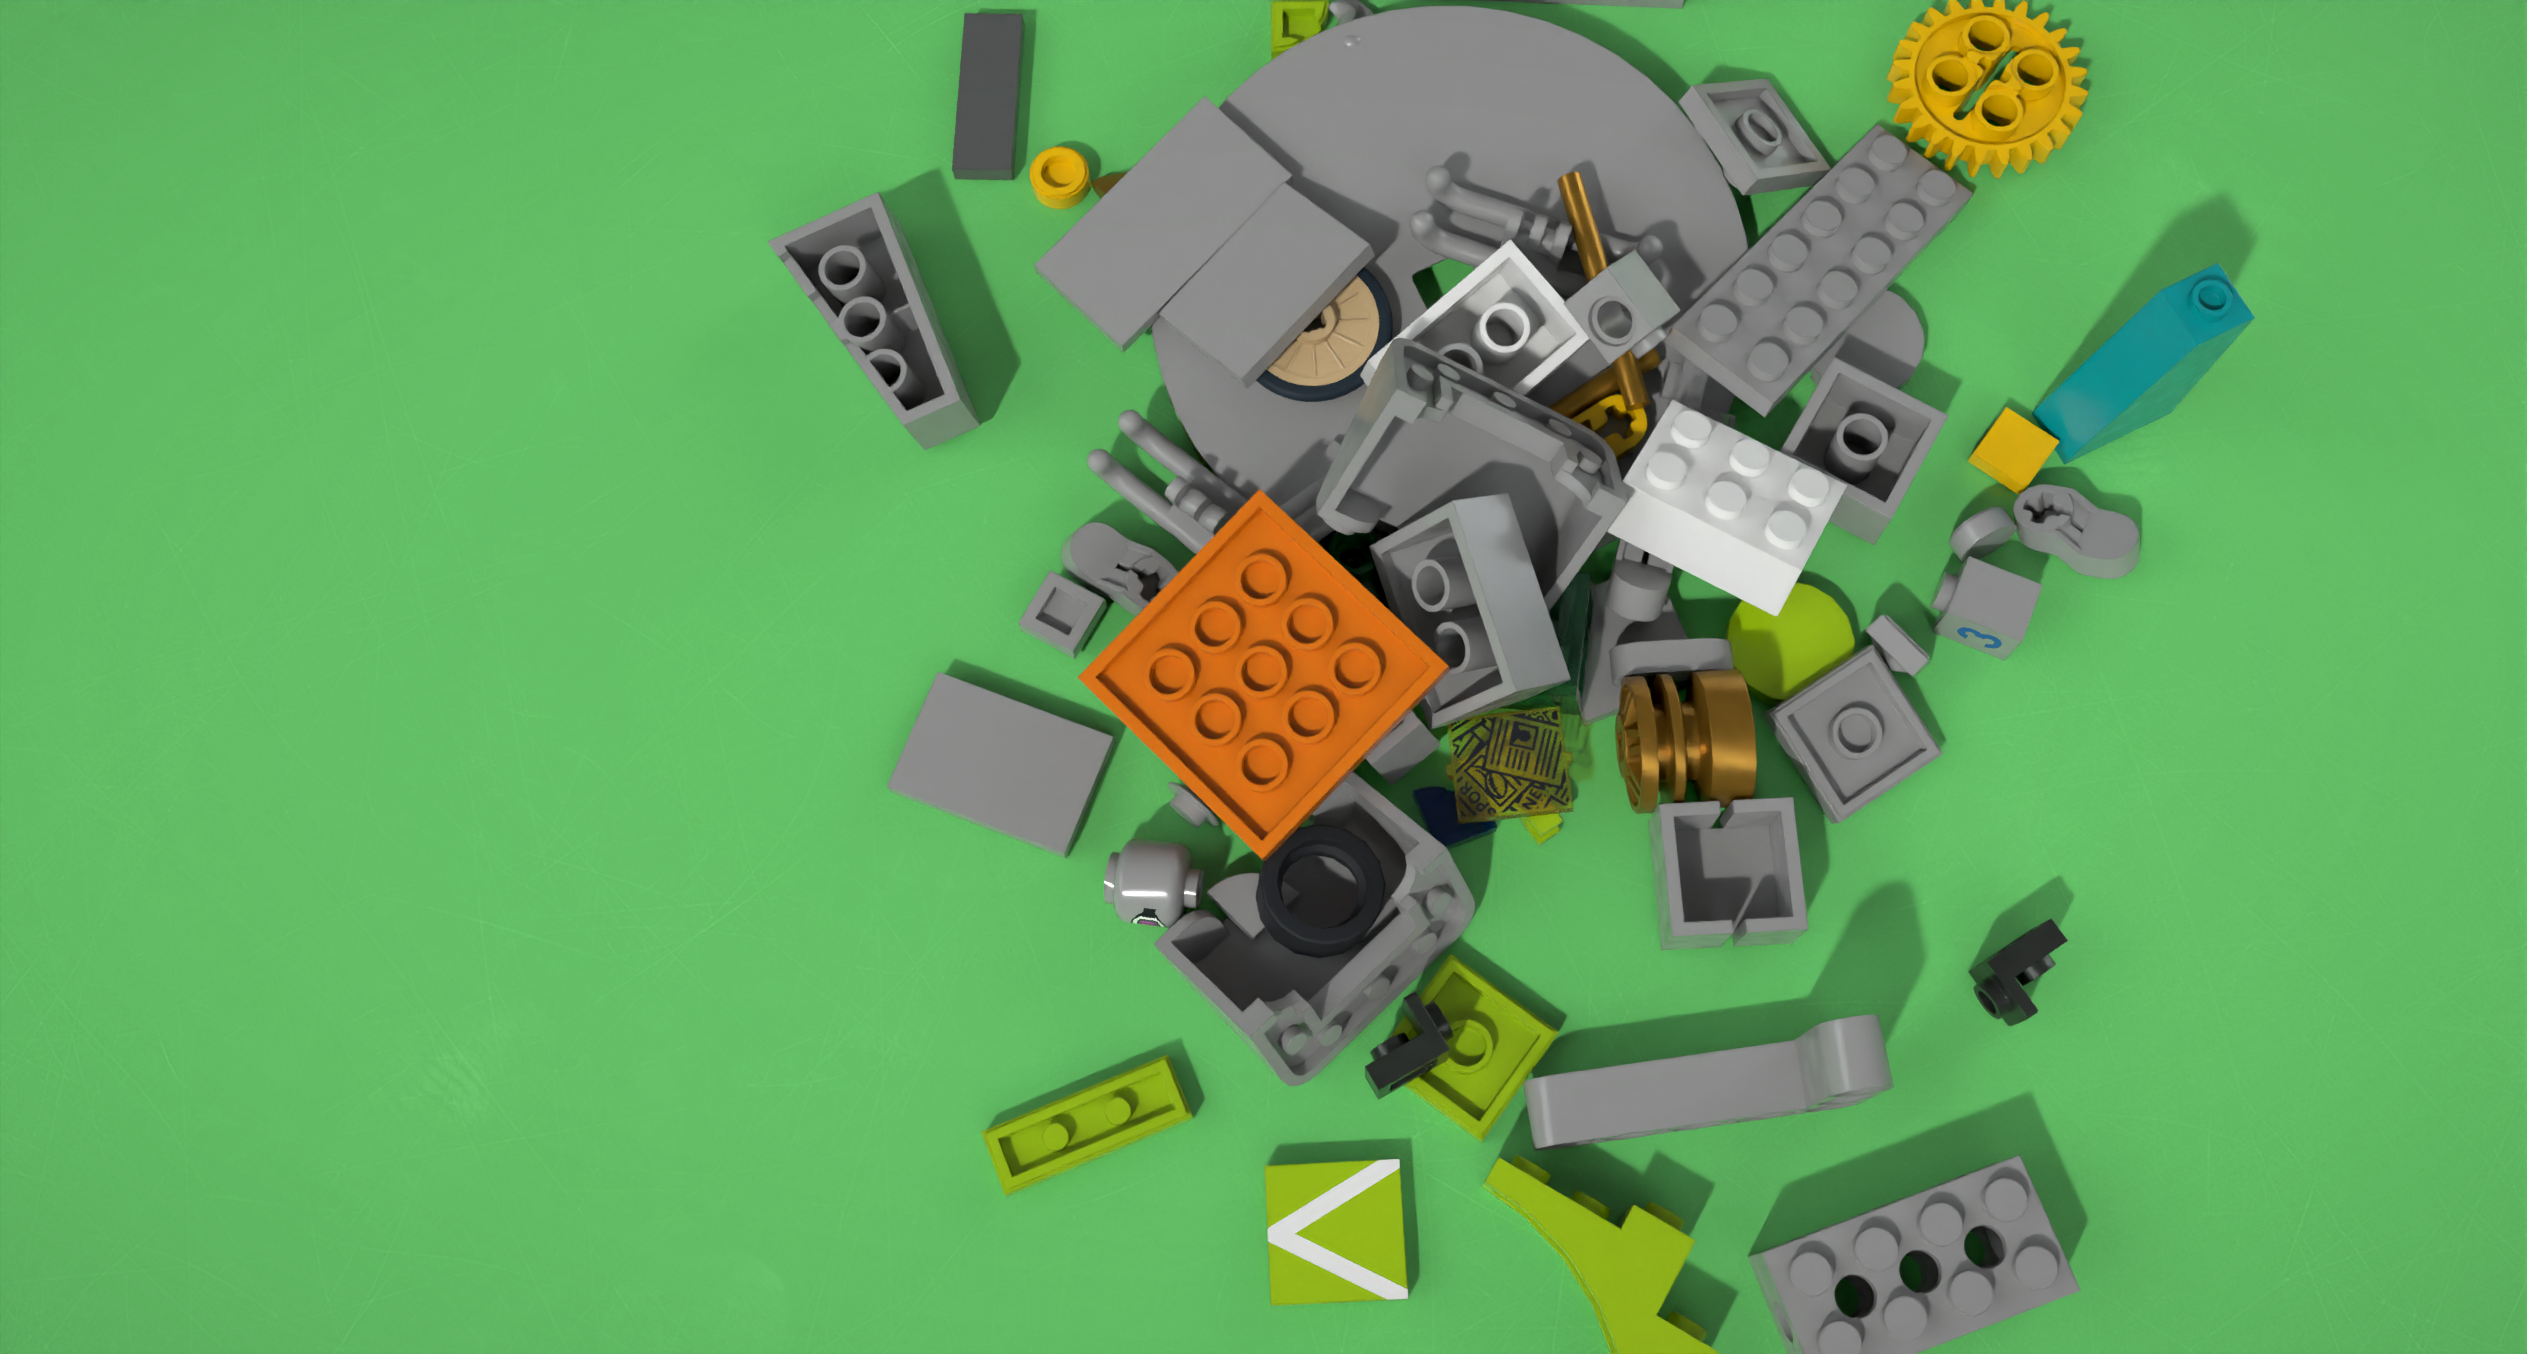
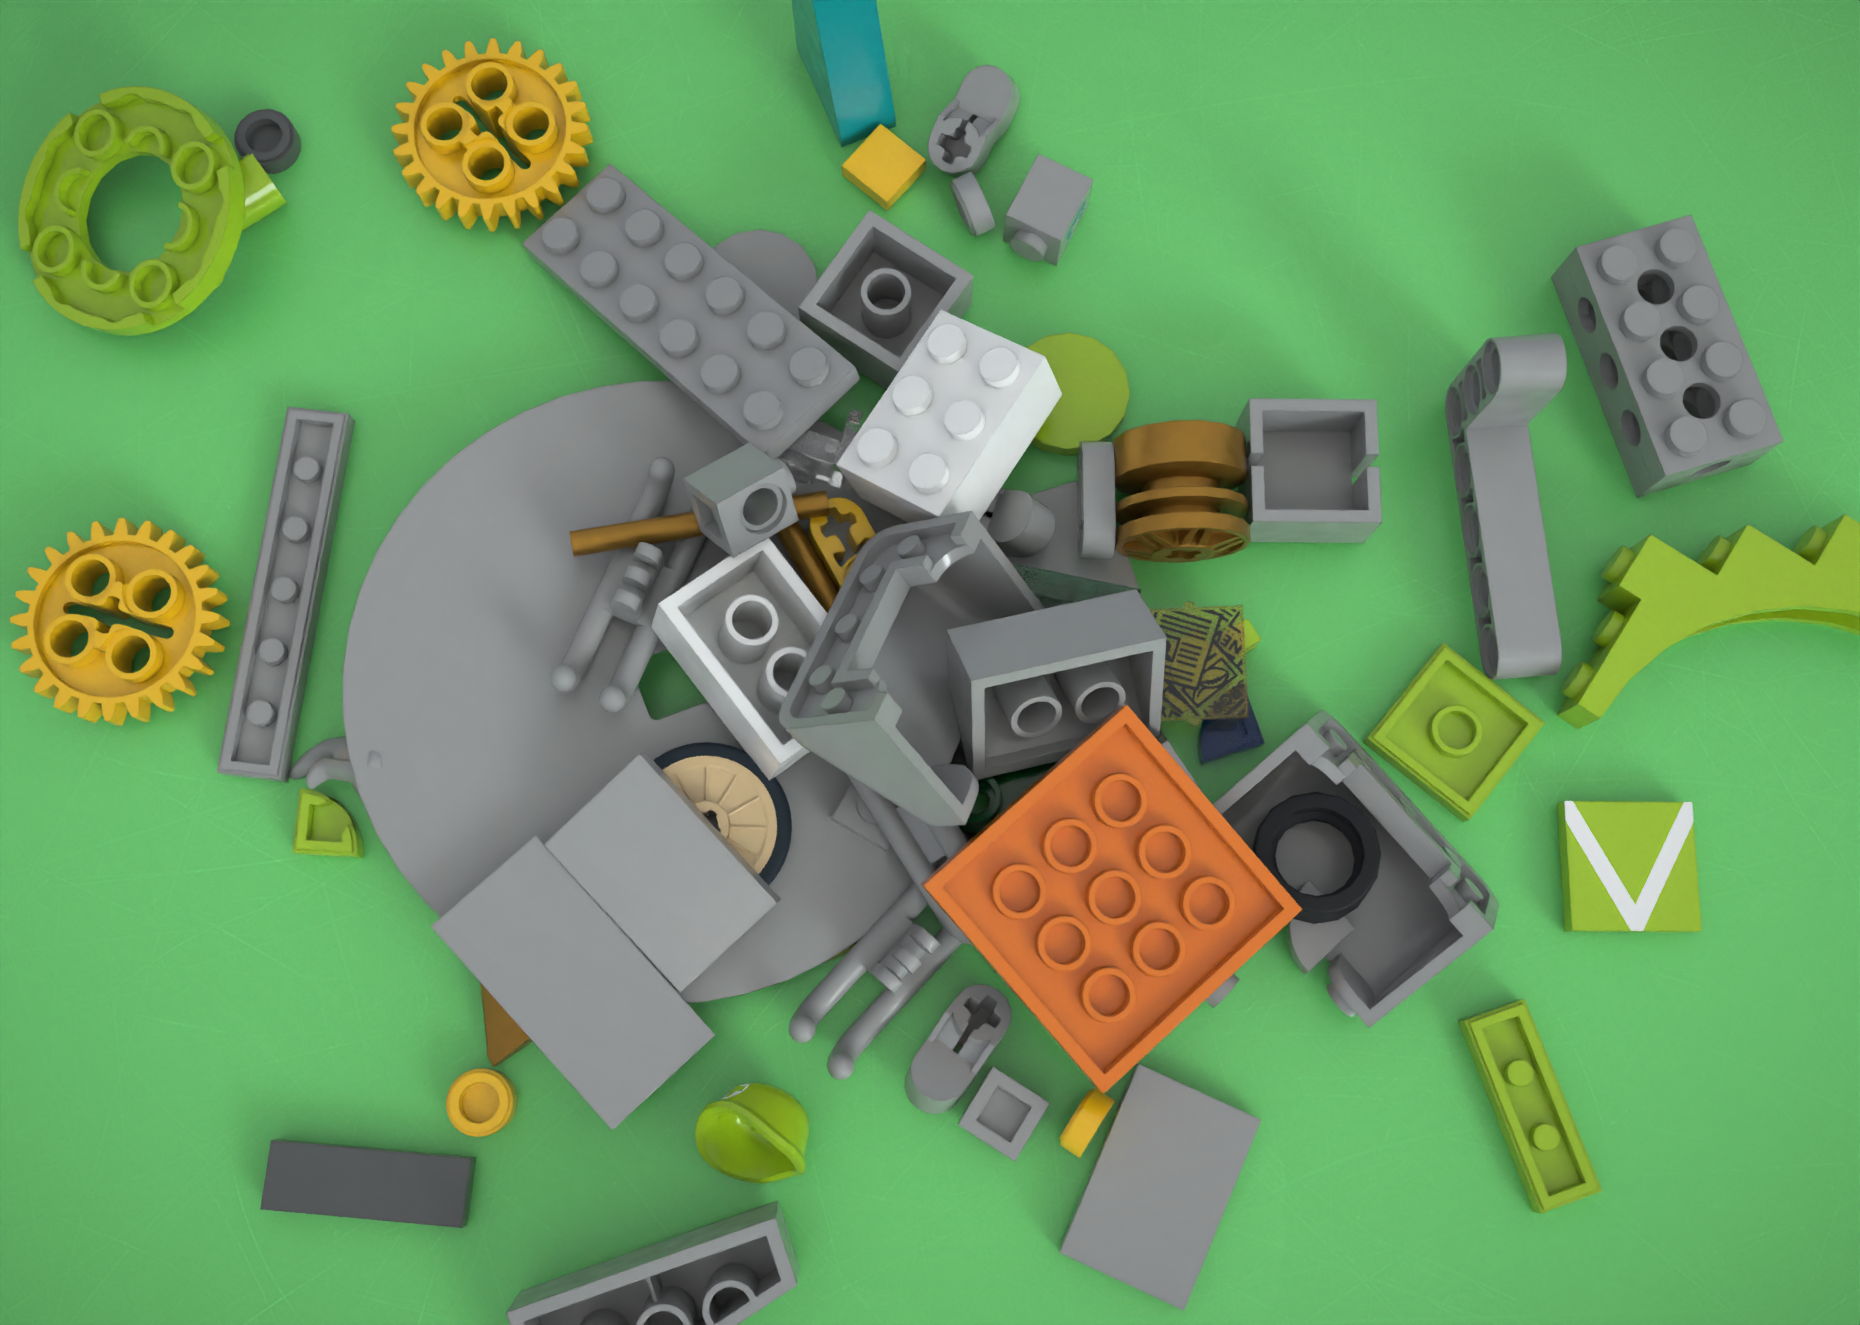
camera: 95 degrees left, 5 degrees up
(1038, 395) = (754, 1134): none -> lime helmet
(1056, 689) = (1085, 1122): none -> yellow tile
(1152, 882) = (1299, 1027): light grey head -> none
(1401, 1060) = (1485, 782): pearl dark grey bracket -> none
(1754, 136) = (529, 360): light grey plate -> none
(1852, 734) = (1163, 346): light grey tile -> none
(1896, 647) = (1084, 294): light grey tile -> none
(2022, 958) = (1384, 232): pearl dark grey bracket -> none

